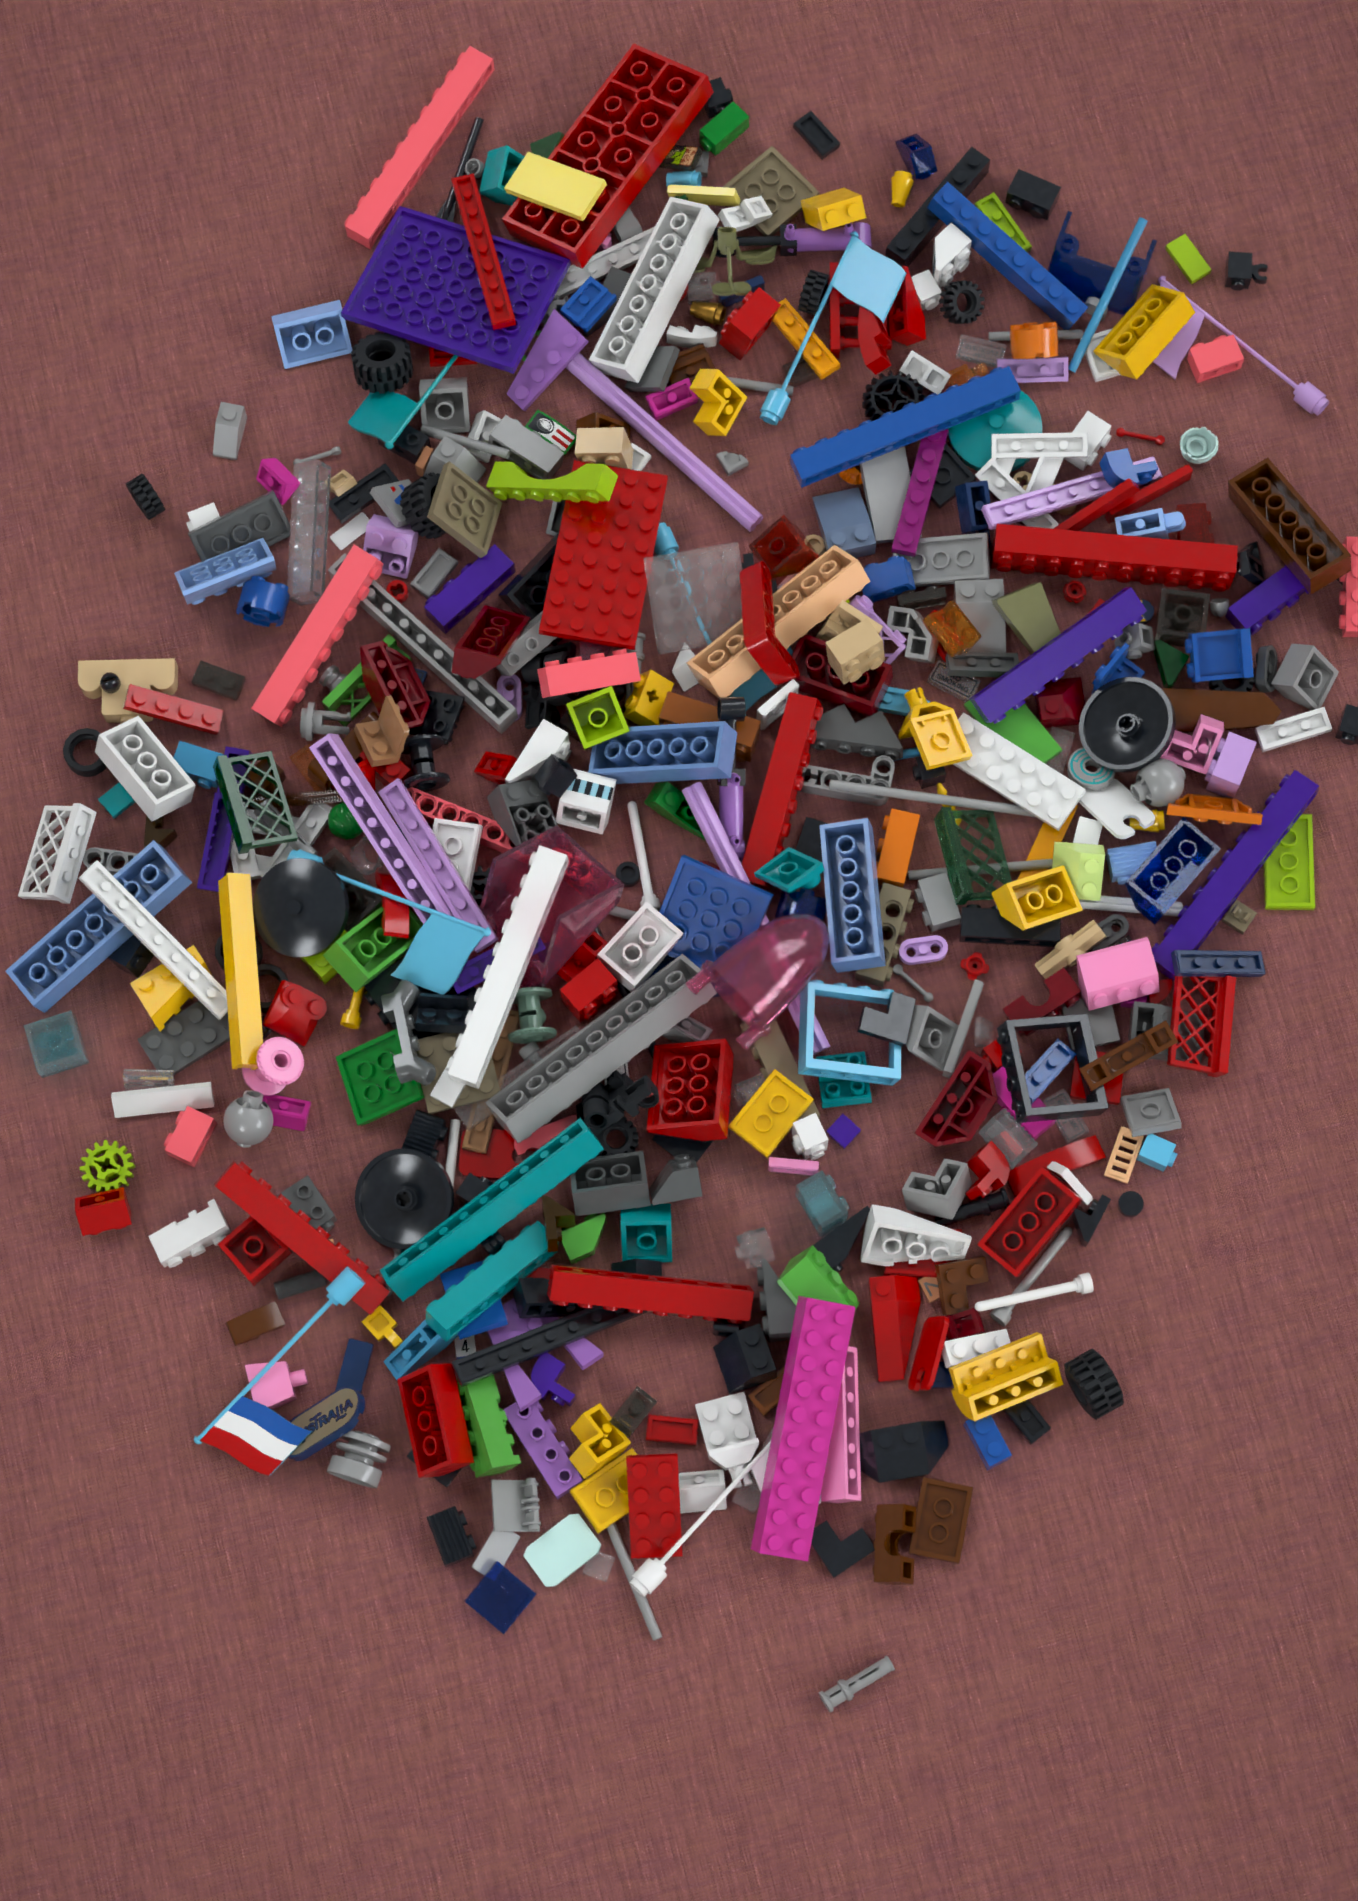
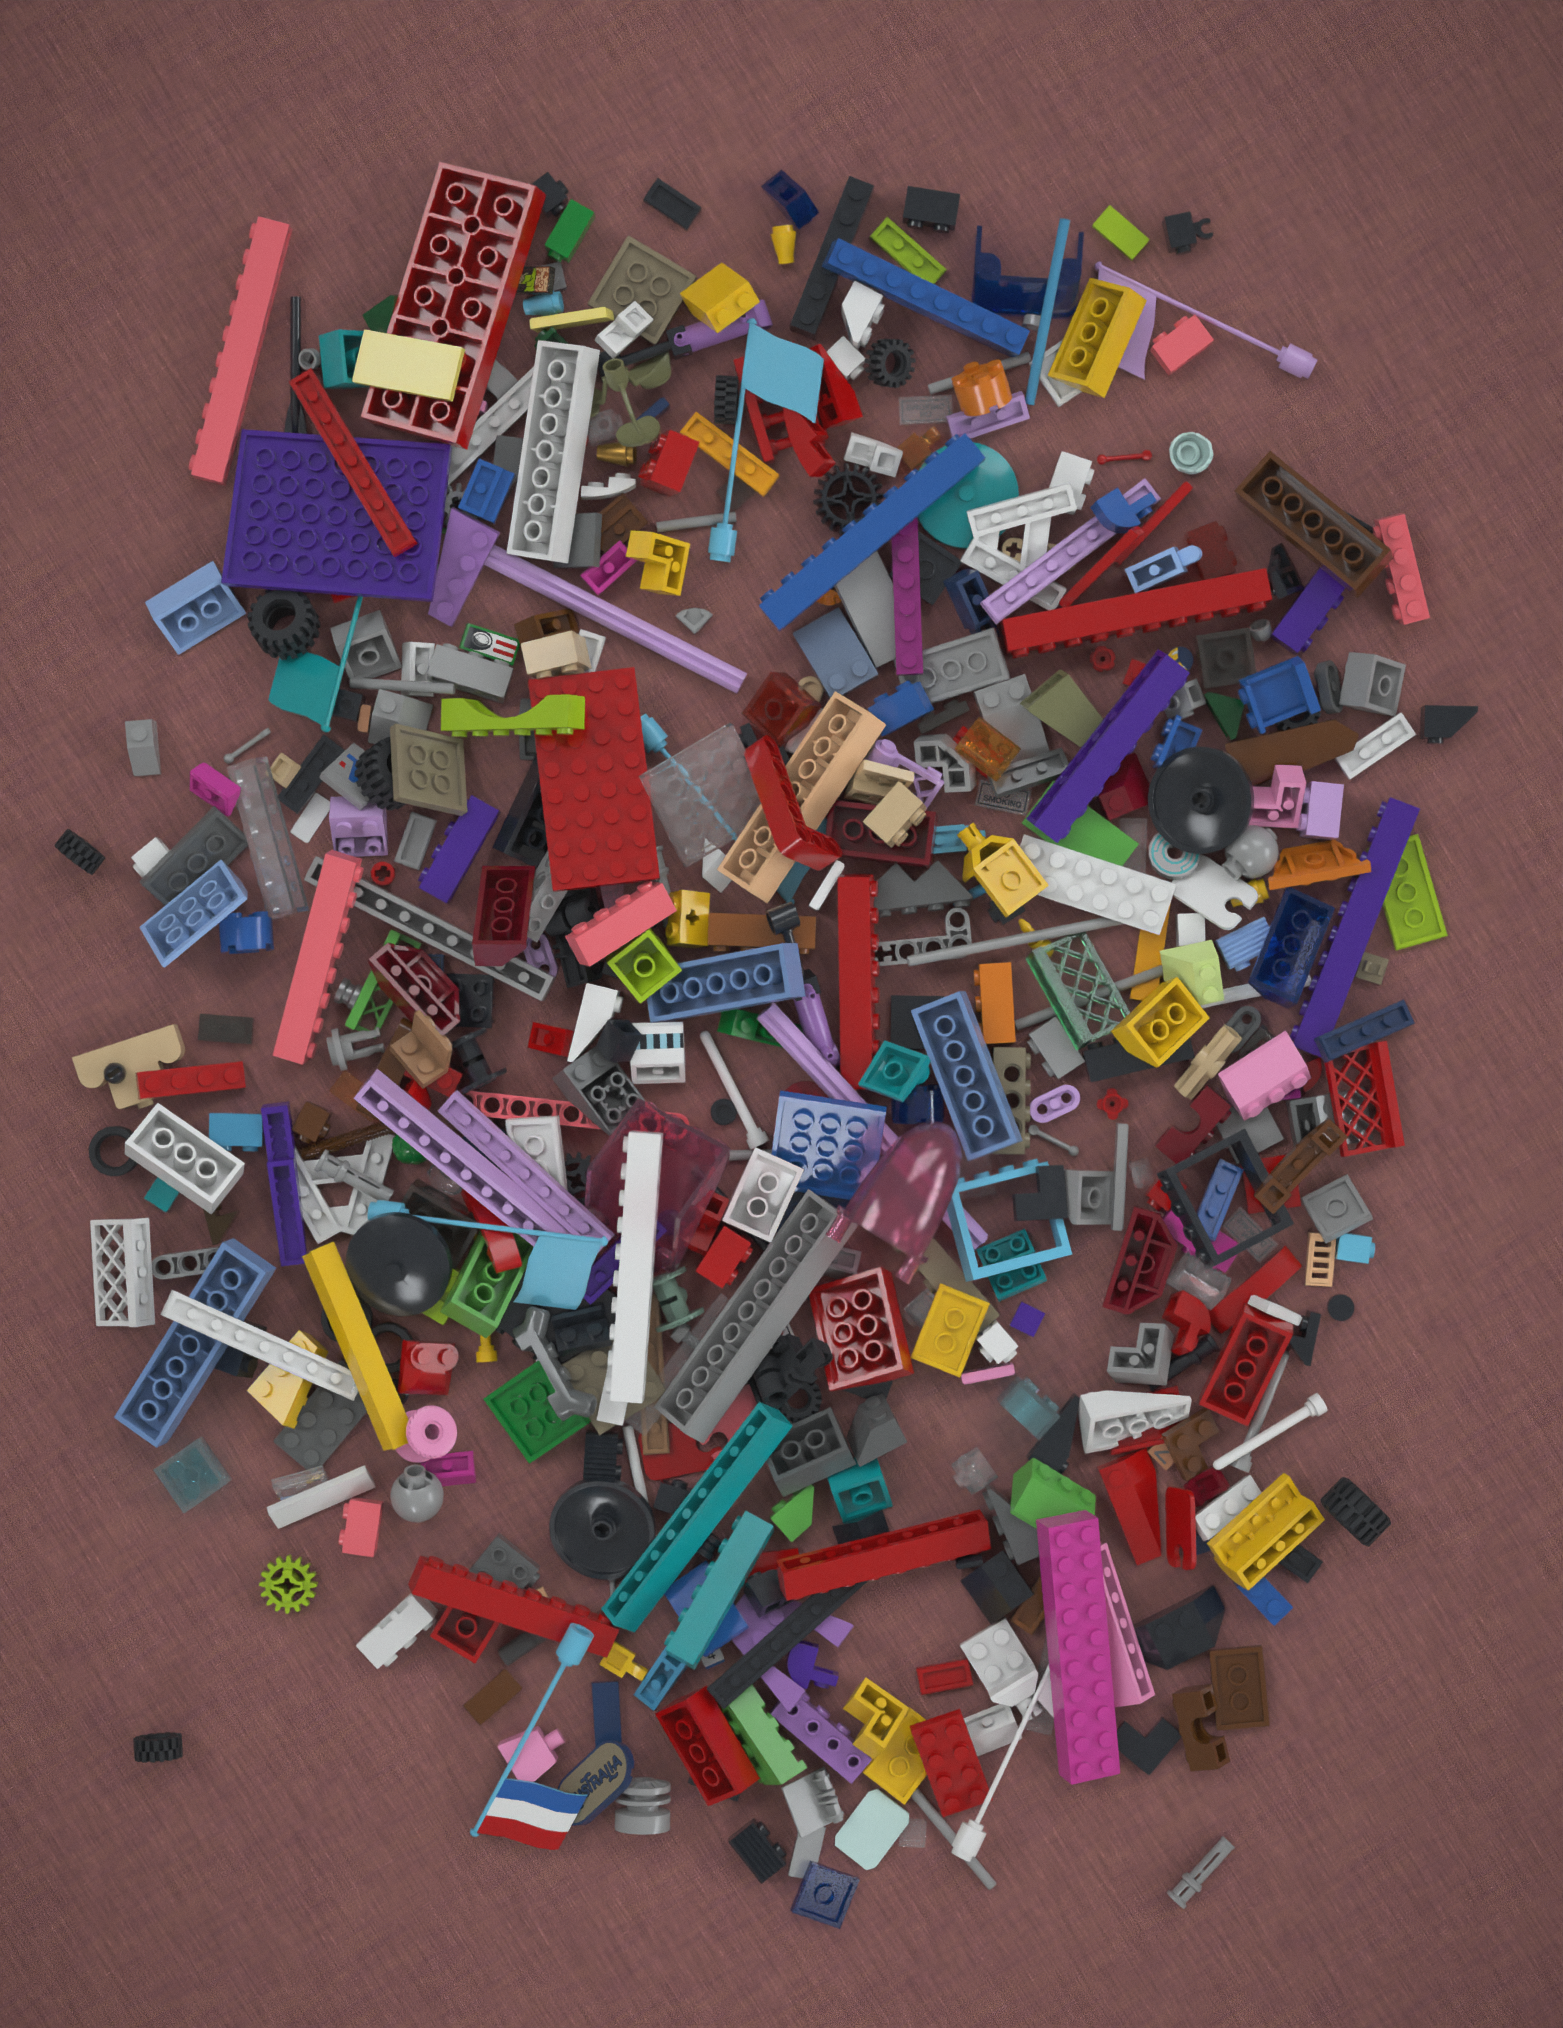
camera: 15 degrees left, 15 degrees up
(103, 1211) = (300, 1632): red brick -> none
(234, 800) = (295, 1176): fence -> none
(555, 1218) = (762, 1506): dark brown slope -> none
(633, 1411) = (901, 1674): clear smoke plate -> none

